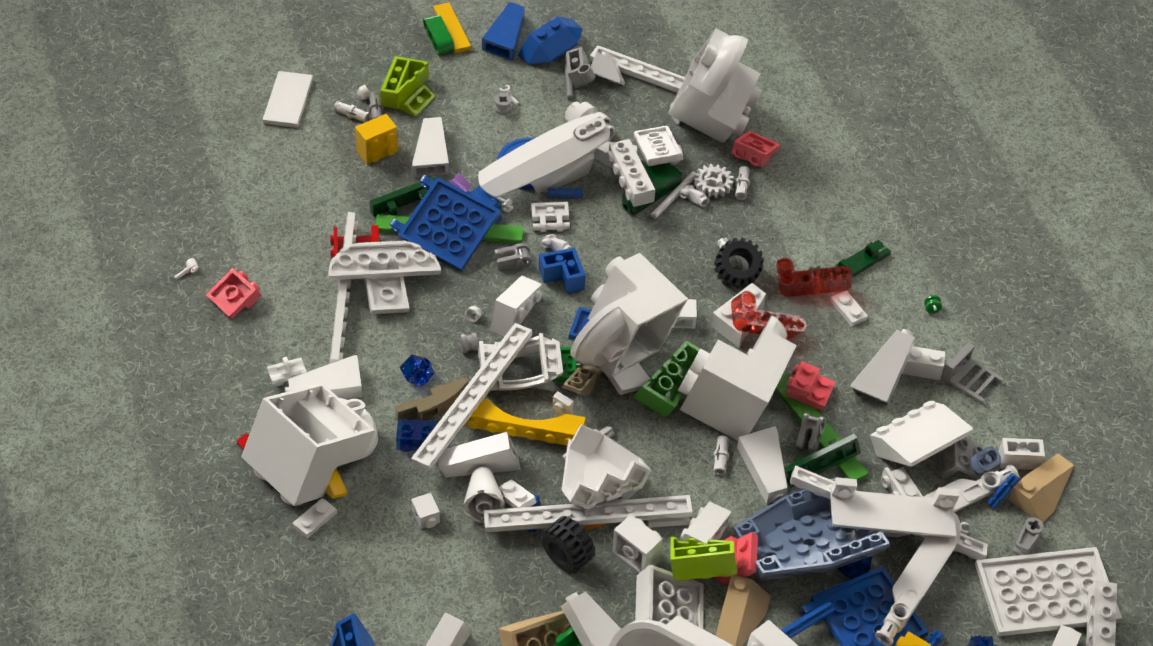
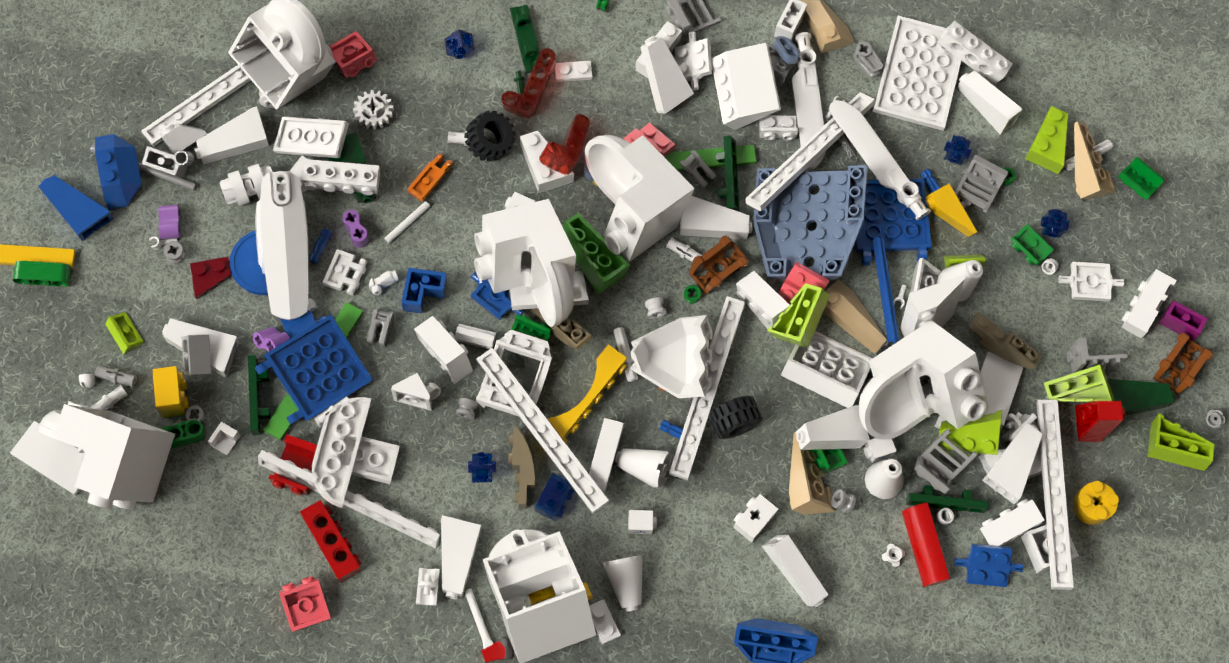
camera: 70 degrees left, 20 degrees up
(191, 267) = (244, 632): white hand -> none
(297, 292) = (316, 513): none -> red brick
(298, 114) = (120, 457): none -> white piece
(342, 160) = (185, 429): none -> green beam
(356, 191) = (224, 438): none -> white panel
(361, 516) = (626, 580): none -> white cone
(365, 170) = (195, 408): none -> light grey bush
(403, 80) = (94, 334): lime wedge -> none
(416, 140) = (196, 354): none -> light grey hinge
(462, 294) = (412, 392): none -> white slope
(476, 604) = (751, 528): none -> white brick
(496, 132) = (209, 274): none -> dark red wing
(516, 495) = (658, 438): white plate -> none
(528, 91) = (169, 222): none -> medium lavender axle
(541, 322) = (475, 336): none -> white axle
(562, 404) = (584, 358): white plate -> none
(593, 208) = (355, 228): none -> medium lavender axle
(624, 243) = (408, 221): none -> white bar
(628, 103) = (233, 138): none -> white slope
(637, 544) = (756, 360): white brick -> none
(648, 449) = (655, 308): none -> white wheel
(673, 195) = (369, 151): white piece -> none
(675, 242) = (429, 178): none -> orange hinge
(684, 480) = (686, 293): none -> green bush
(694, 195) = (383, 133): white arm -> none
(724, 483) = (713, 257): none -> dark orange piece
(742, 183) = (387, 86): white pin -> none
(814, 214) = (459, 44): none -> clear blue brick
(893, 512) = (822, 146): white bracket -> none
(921, 391) = (694, 59): none -> white plate
(1003, 490) = (820, 51): blue axle -> none

